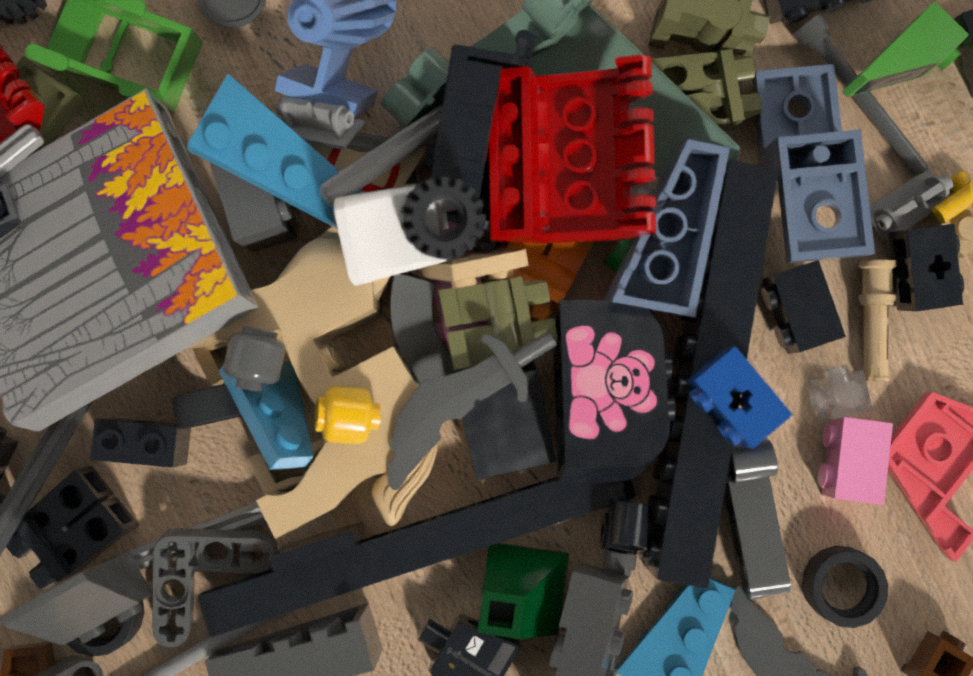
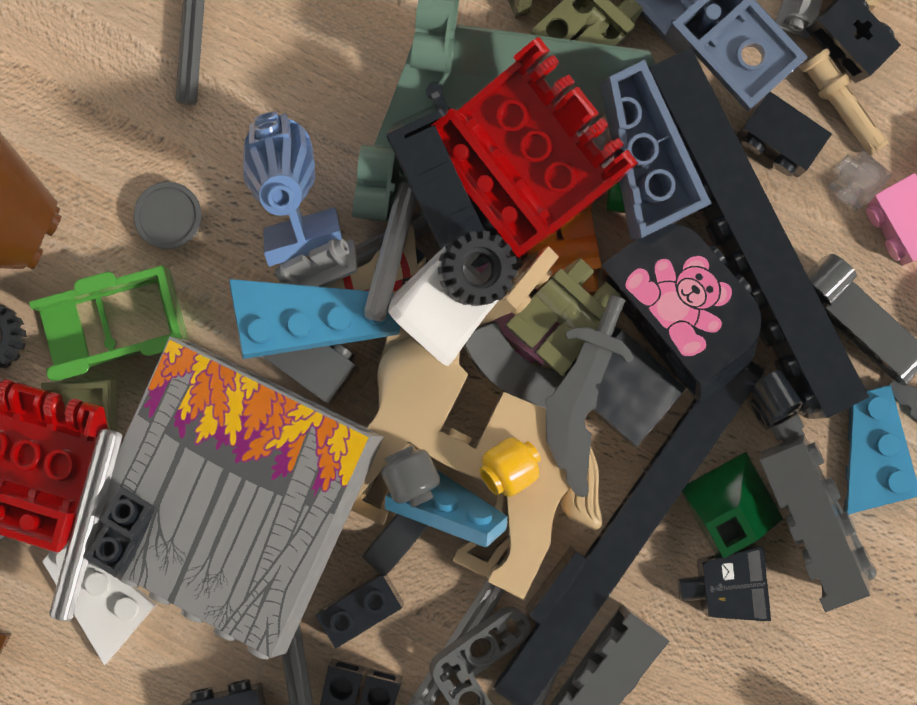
camera: 35 degrees left, 0 degrees up
(760, 406) = (809, 235): blue brick -> none

